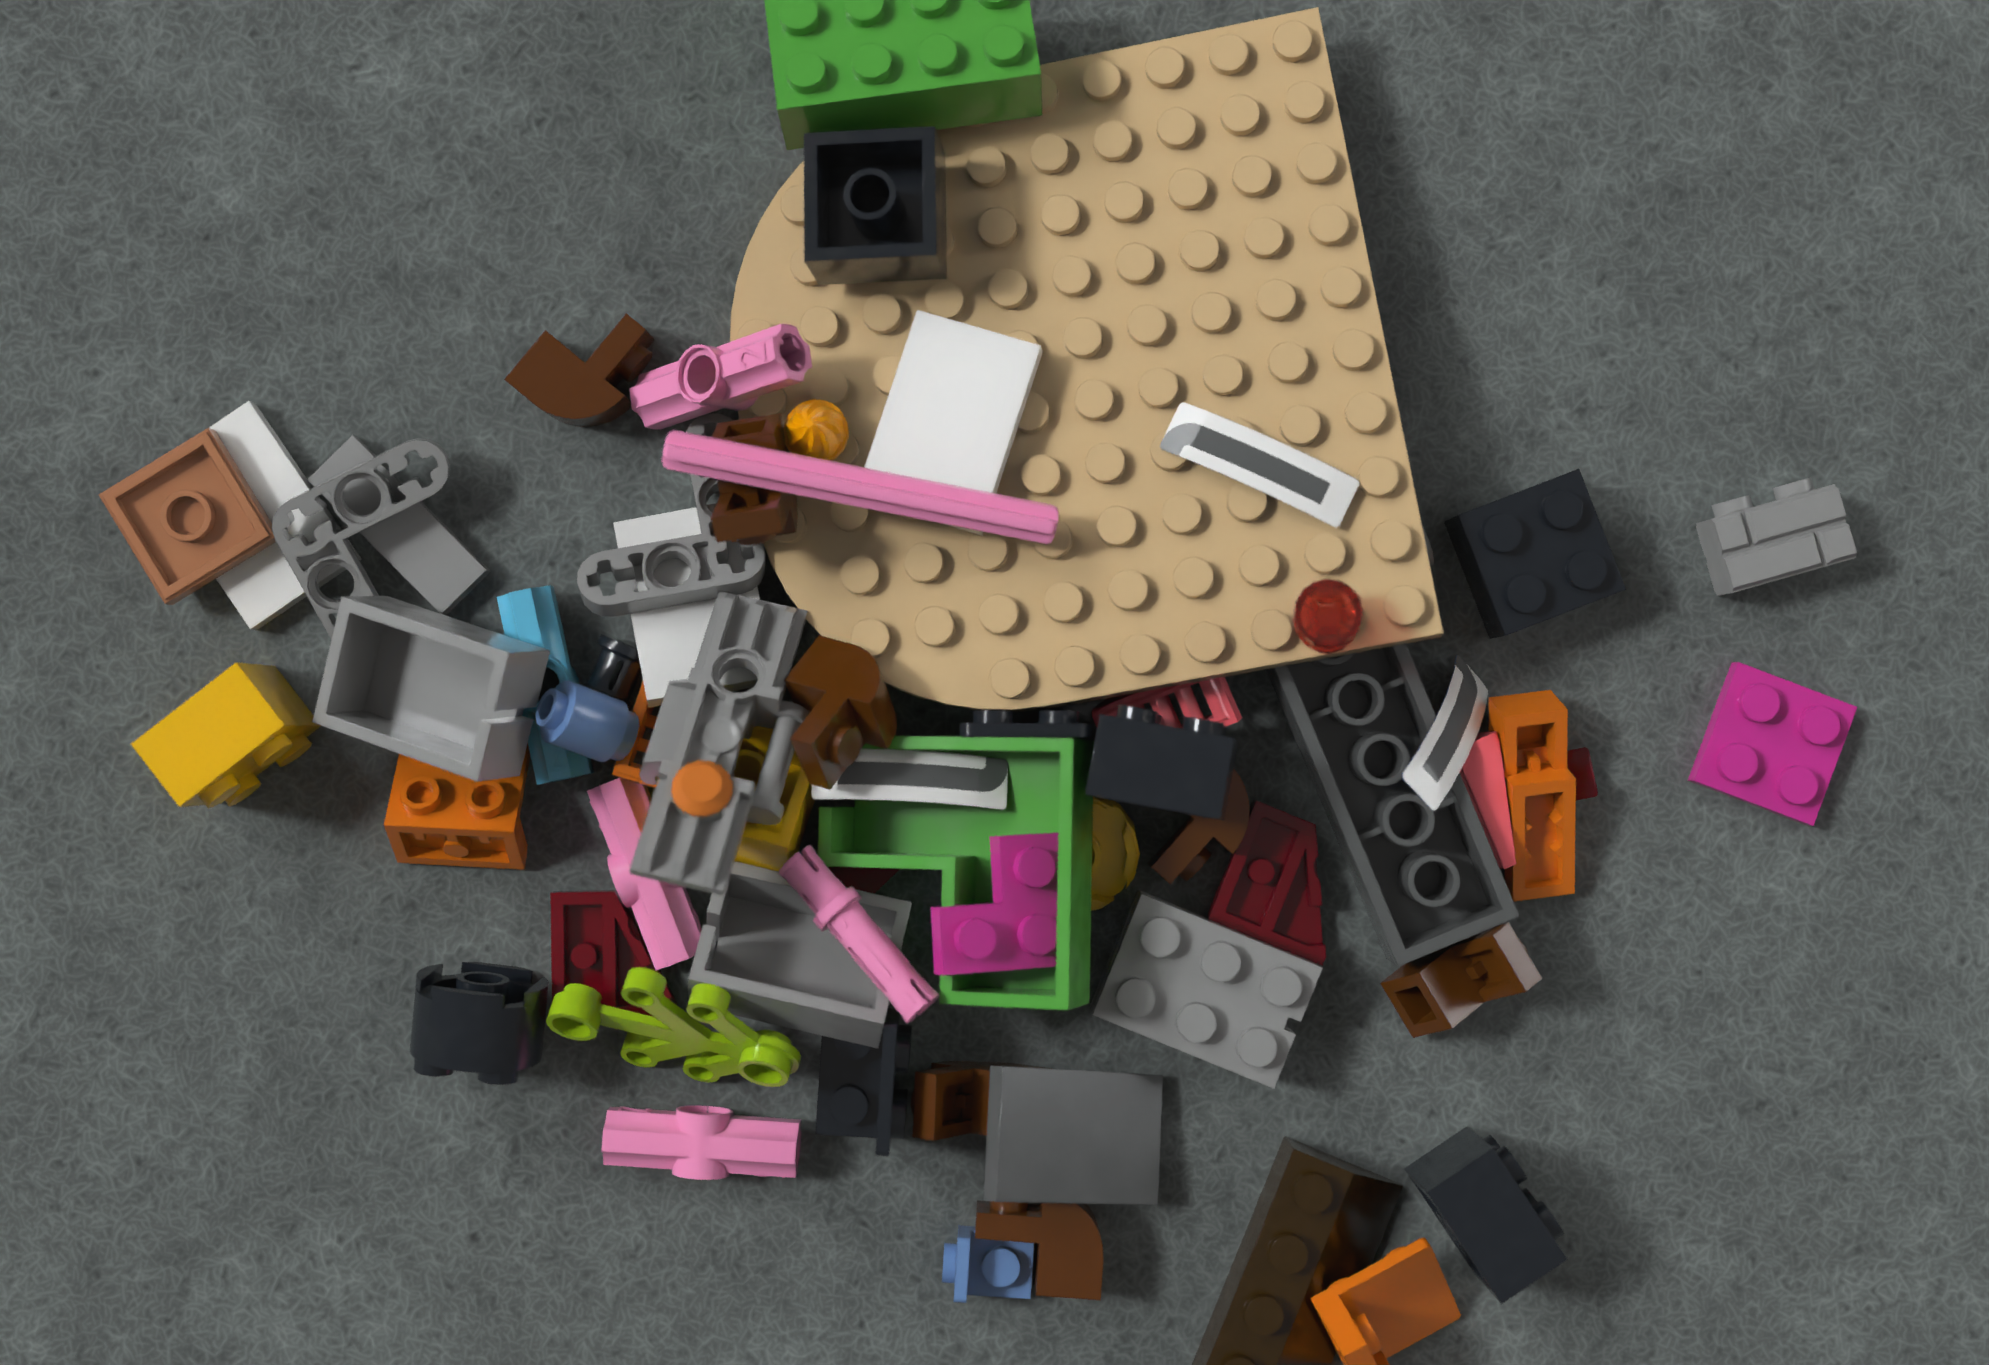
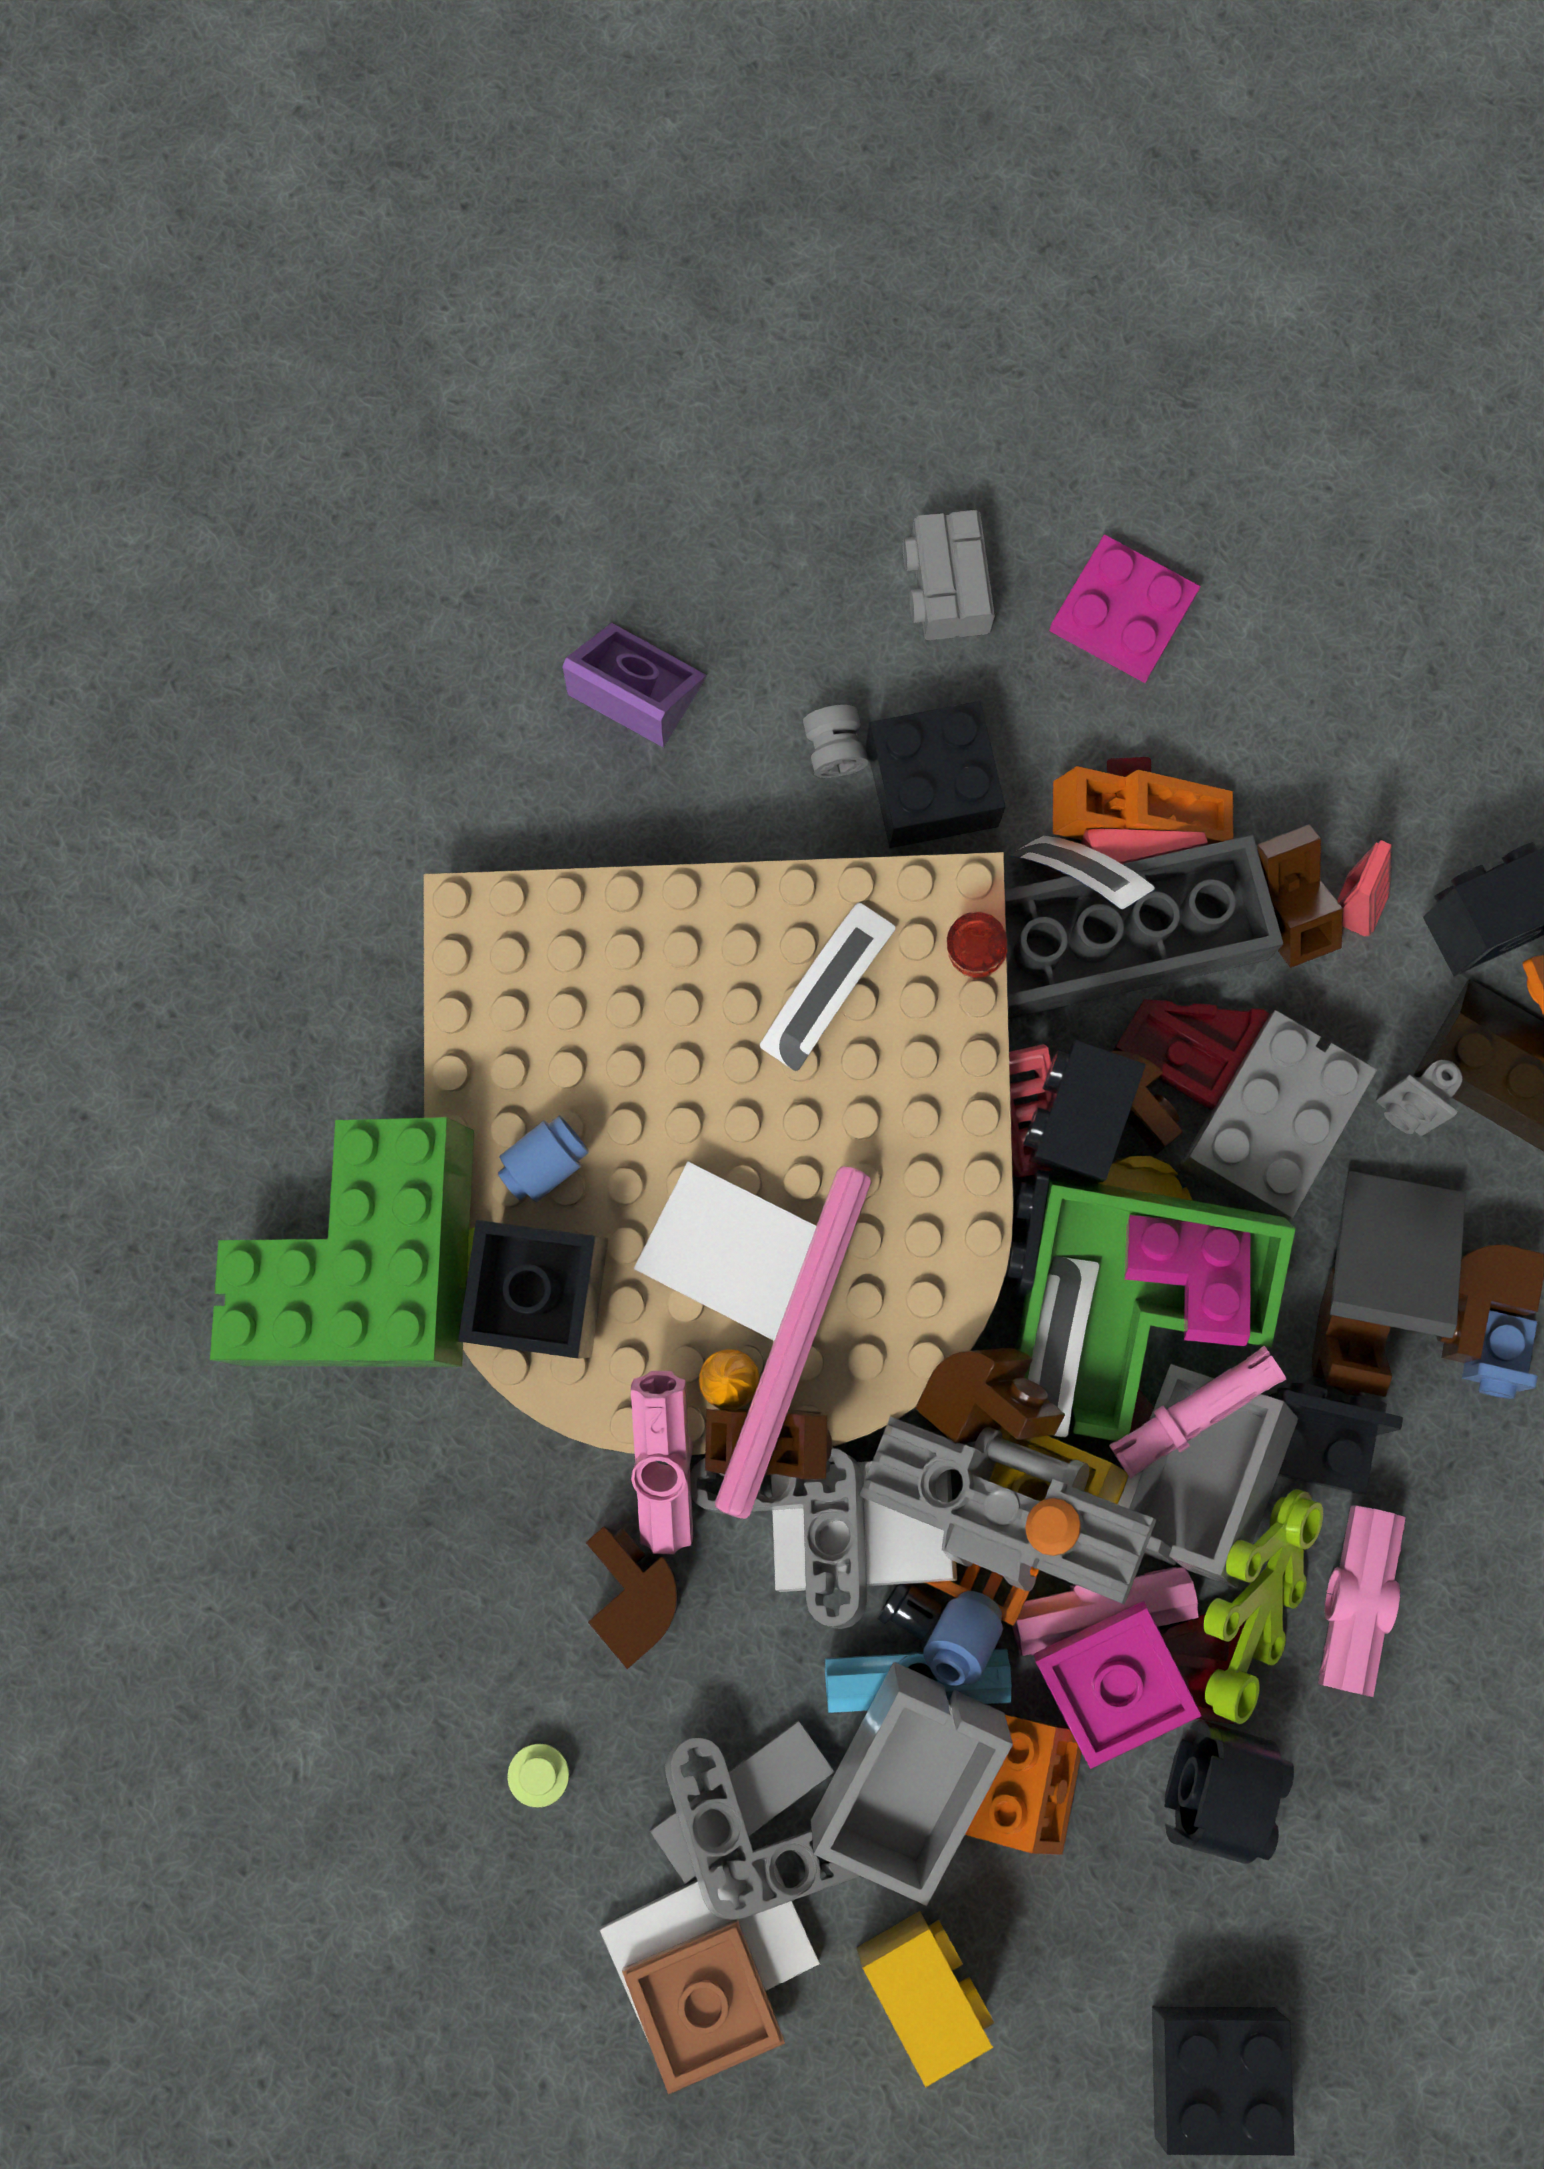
camera: 80 degrees left, 10 degrees down
(198, 1054) = (1222, 2081): none -> black brick
(390, 312) = (538, 1775): none -> yellowish green plate
(568, 890) = (1117, 1684): none -> dark pink plate
(1018, 190) = (542, 1159): none -> medium blue brick
(1252, 1144) = (1422, 1102): none -> light grey hinge
(1480, 1056) = (1366, 890): none -> coral slope
(1554, 439) = (835, 741): none -> light grey wheel
(1587, 202) = (632, 682): none -> medium lavender slope

